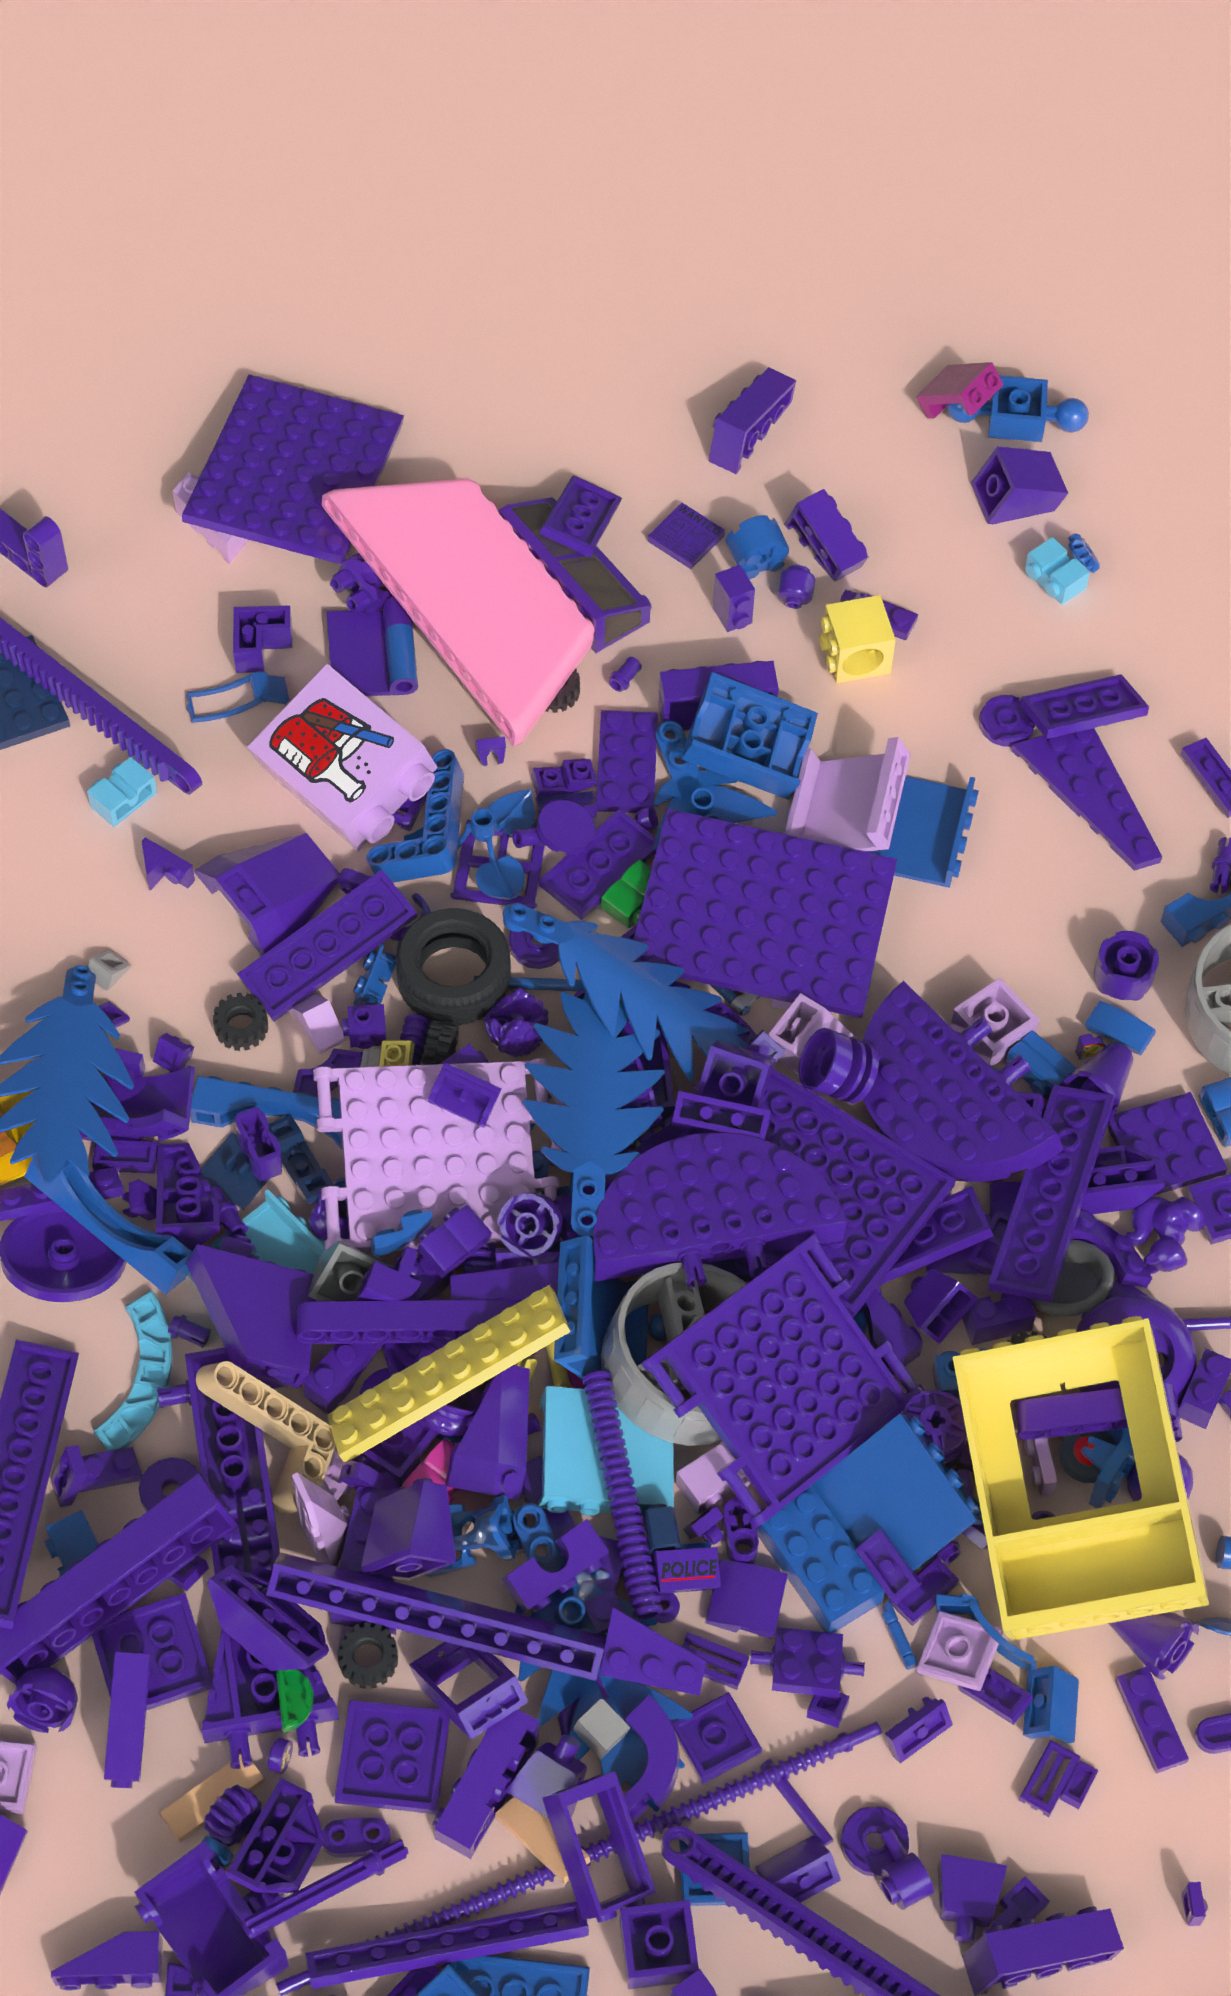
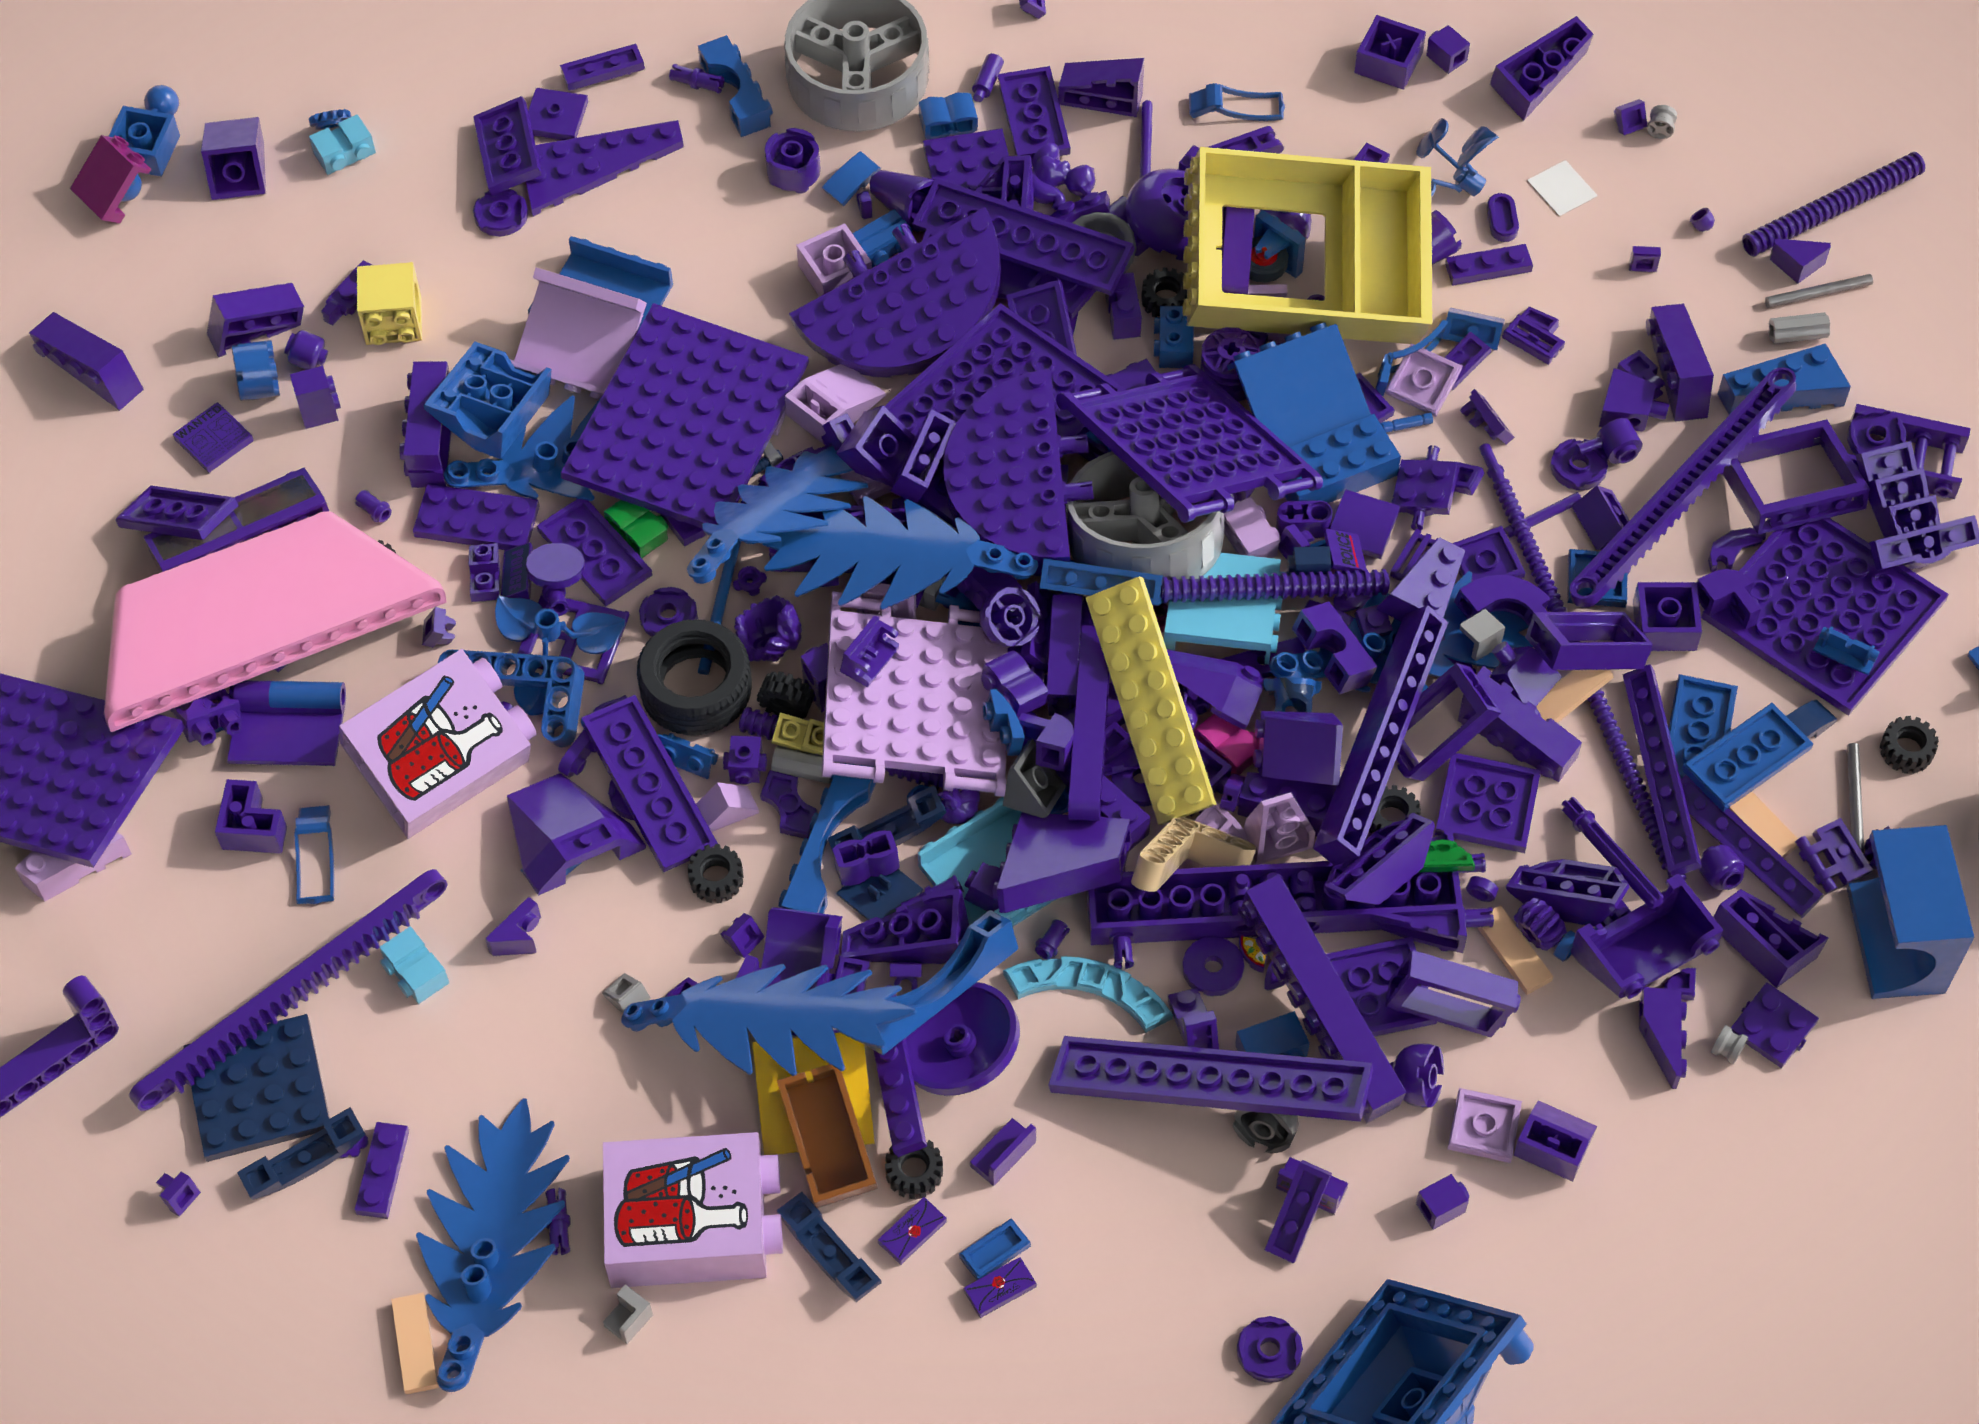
camera: 80 degrees left, 0 degrees up
(355, 1840) = (1556, 836): dark purple plate -> none
(647, 818) = (549, 506): dark purple hinge -> none
(838, 1065) = (864, 382): dark purple wheel -> none
(888, 1566) = (1358, 404): dark purple plate -> none
(938, 1303) = (1110, 340): dark purple torso -> none
(1145, 747) = (557, 113): none -> dark purple plate

